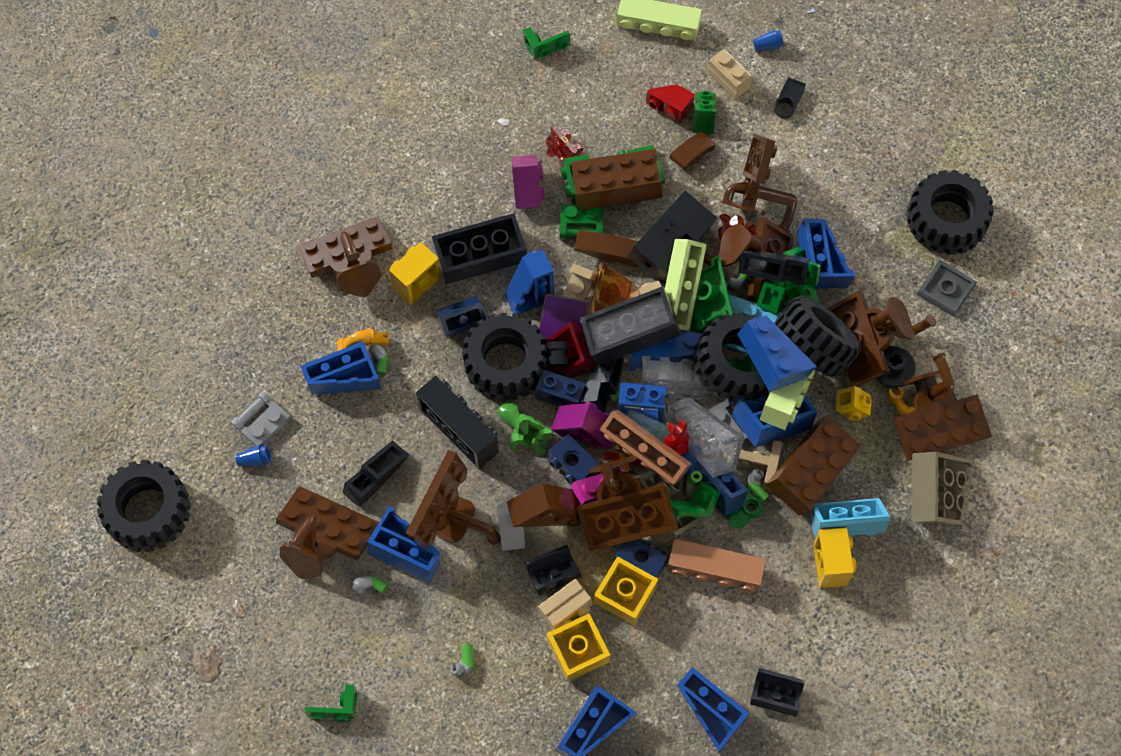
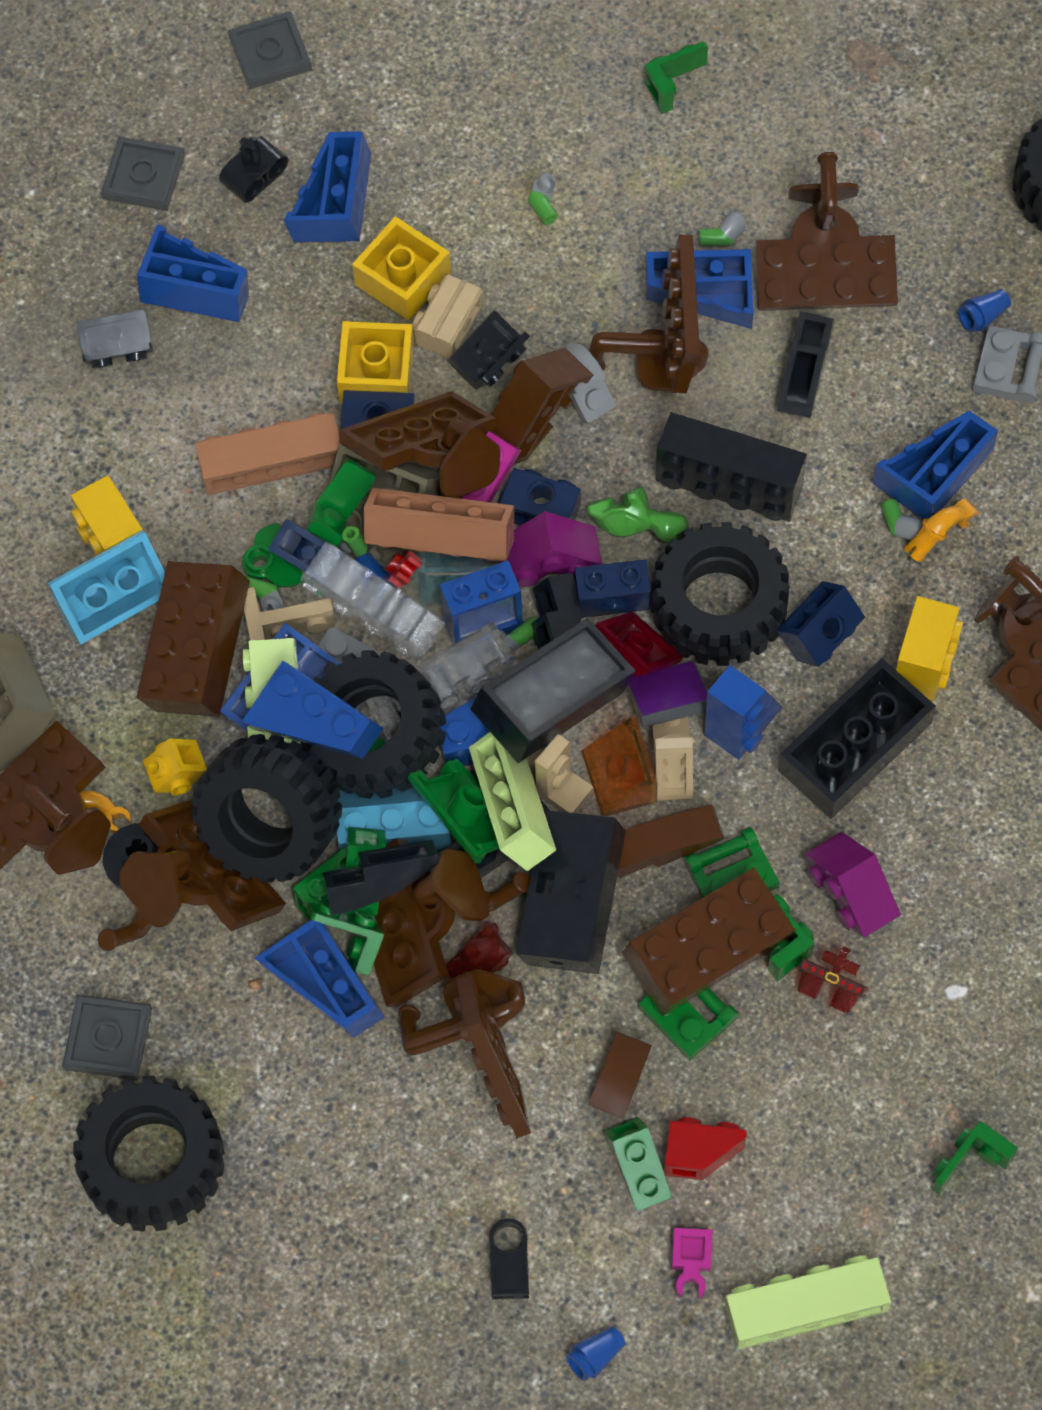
camera: 155 degrees right, 0 degrees up
(557, 353) = (643, 621): black wheel -> none
(699, 60) = (692, 1254): none -> dark pink plate
(729, 74) = (629, 1246): tan brick -> none

